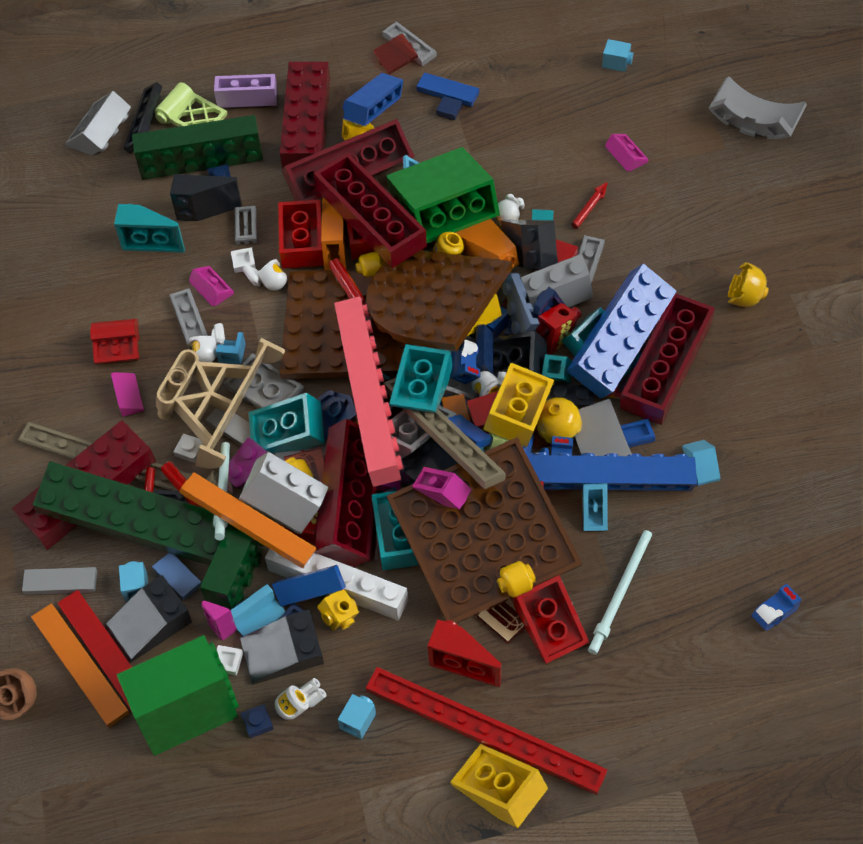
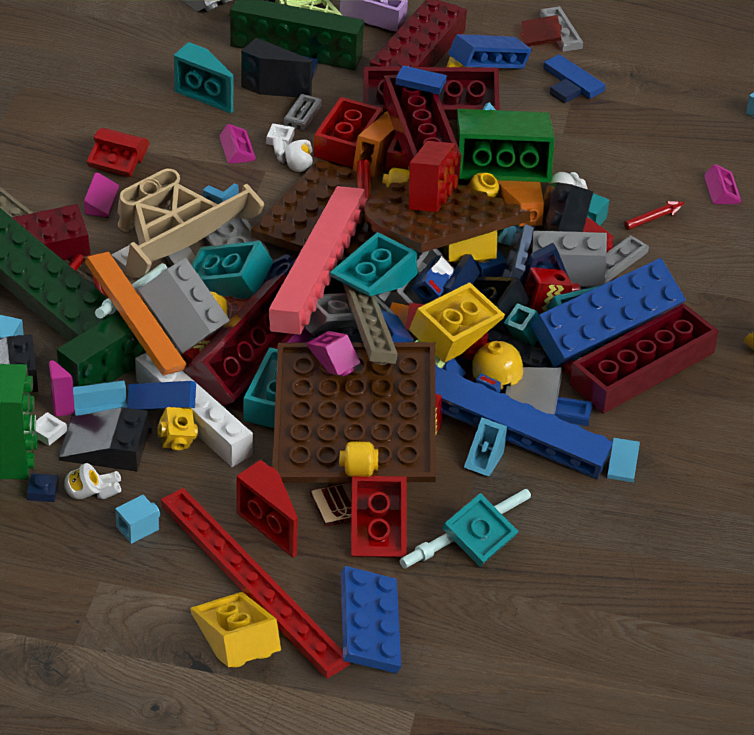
camera: 20 degrees right, 15 degrees down
(177, 575) = (46, 346): medium blue tile -> none
(187, 314) = (199, 162): light grey tile -> none
(206, 345) = (197, 182): white piece -> none
(348, 165) = (421, 79): none -> blue tile
(419, 265) = (432, 176): none -> red brick
(601, 722) = (370, 619): none -> blue plate
(636, 591) = (480, 529): none -> teal plate
(777, 608) = (616, 603): blue leg -> none

